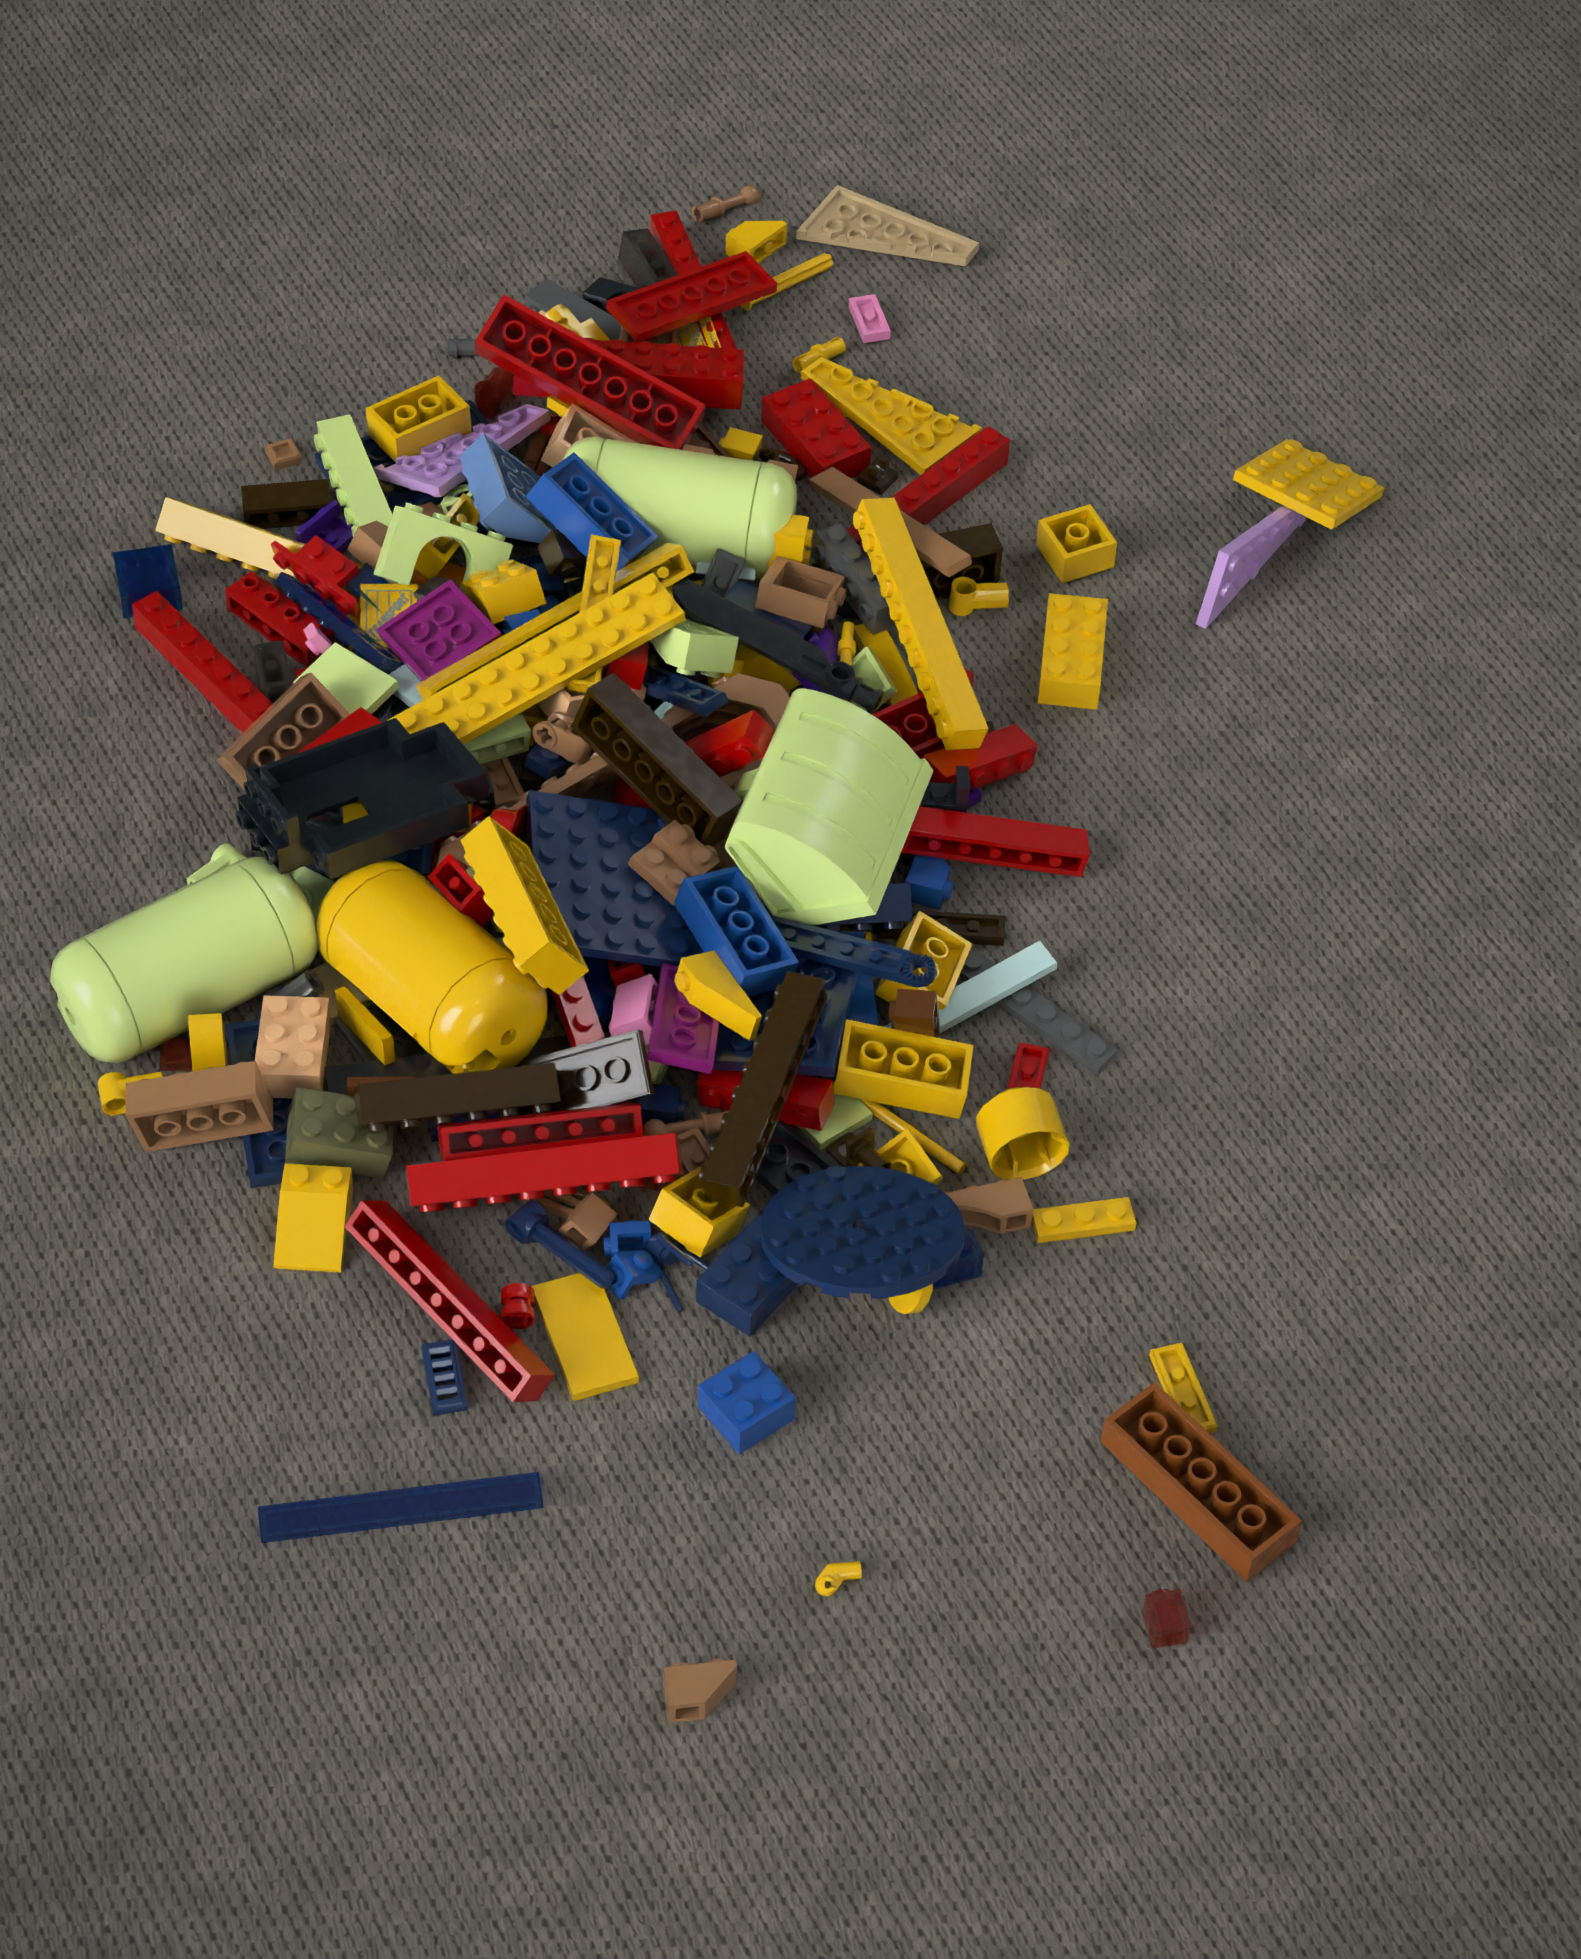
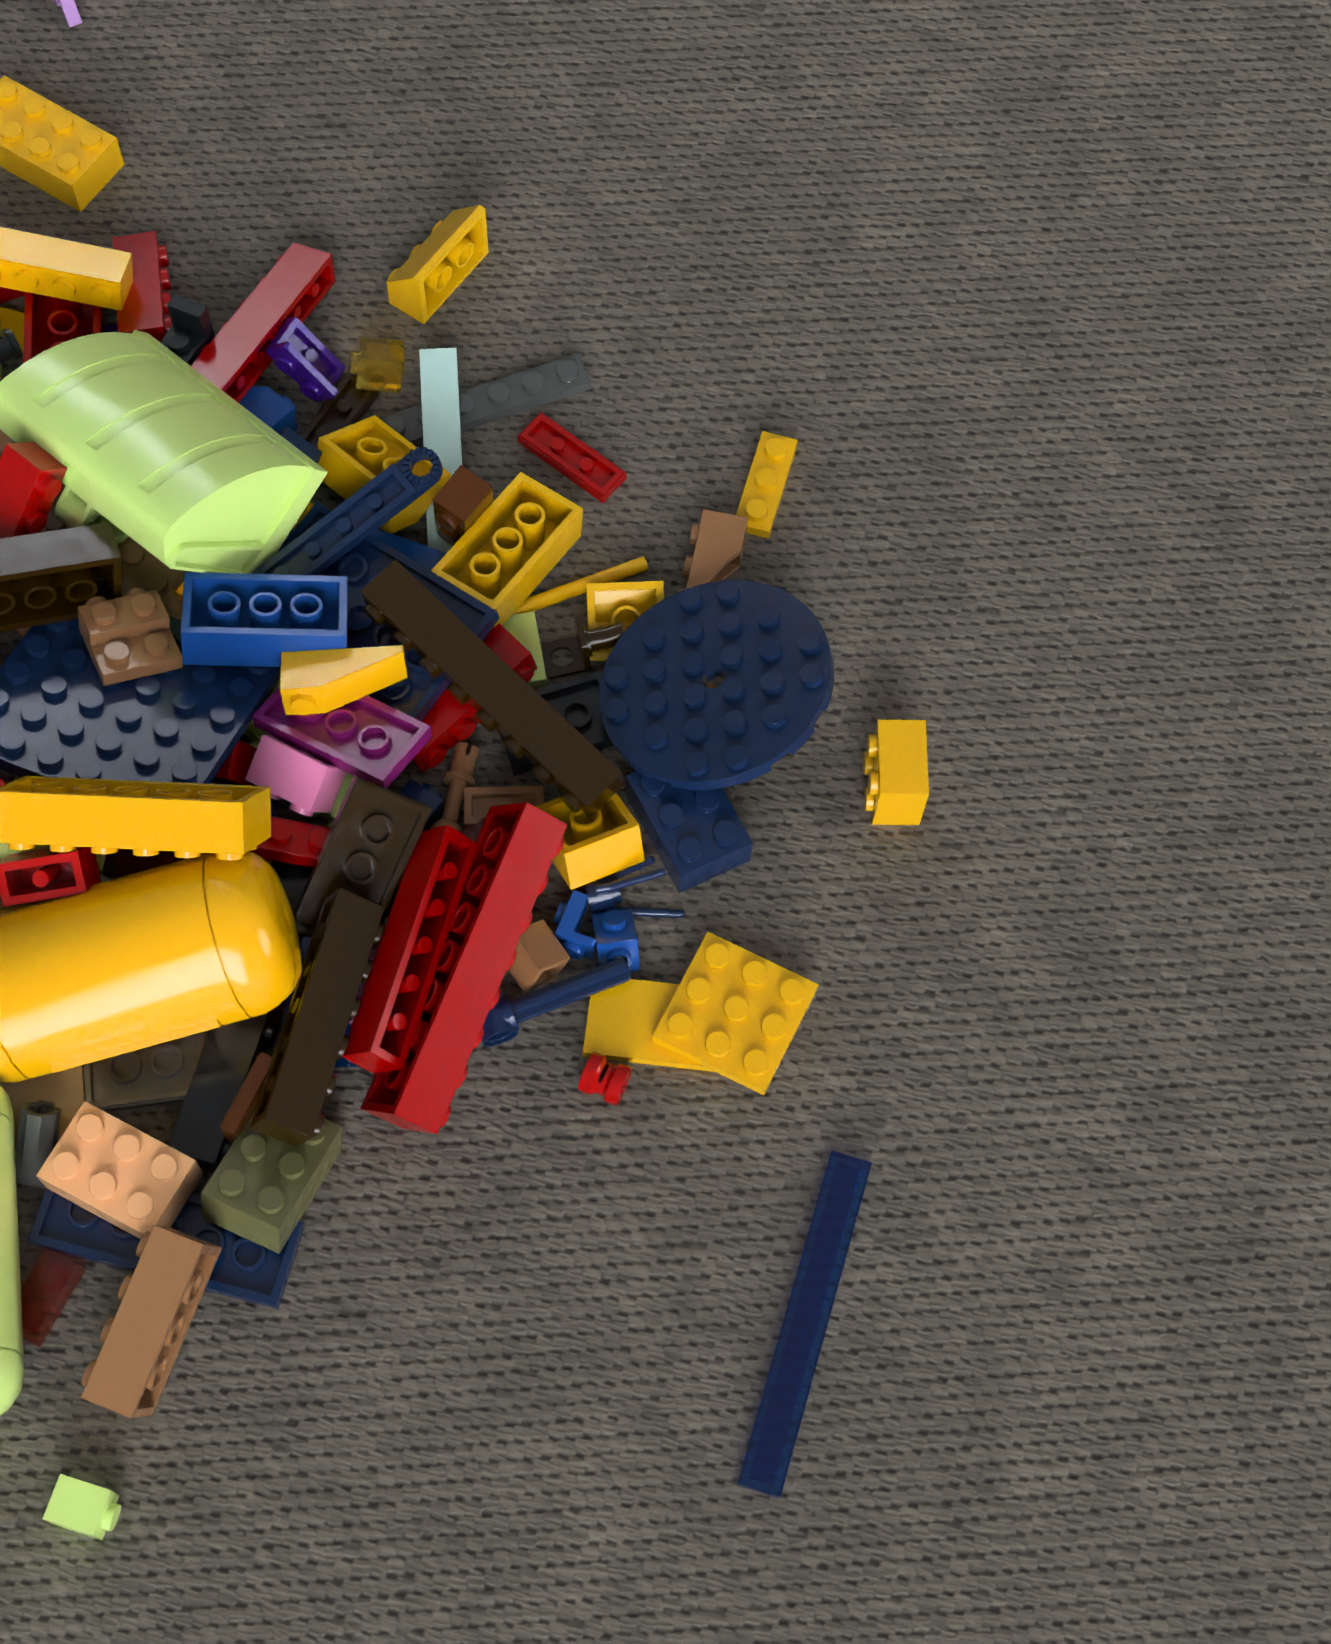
camera: 65 degrees left, 15 degrees up
(63, 1134) = (82, 1507): none -> yellowish green brick
(113, 1090) = (57, 1408): yellow piece -> none
(207, 1041) = (84, 1279): yellow slope -> none
(313, 1217) = (368, 1254): yellow slope -> none
(365, 1025) = (135, 1077): yellow tile -> none
(442, 1356) = (655, 1215): dark blue slope -> none
(449, 1301) = (565, 1149): red brick -> none
(613, 1366) = (735, 1013): none -> yellow plate
(697, 1688) = (1176, 1108): medium nougat slope -> none
(746, 1402) = (846, 898): blue brick -> none
(835, 1574) = (1084, 911): yellow arm -> none
(869, 1390) = (896, 772): none -> yellow brick
(989, 881) = (305, 360): none -> dark purple bracket
(1017, 927) = (378, 364): none -> clear yellow brick
(1022, 1133) = (649, 480): yellow piece -> none
(1133, 929) = (440, 263): none -> yellow slope
(1166, 1618) = (1268, 633): clear red brick -> none
(1182, 1384) = (1008, 496): yellow tile -> none
(1200, 1481) = (1134, 528): dark orange brick -> none

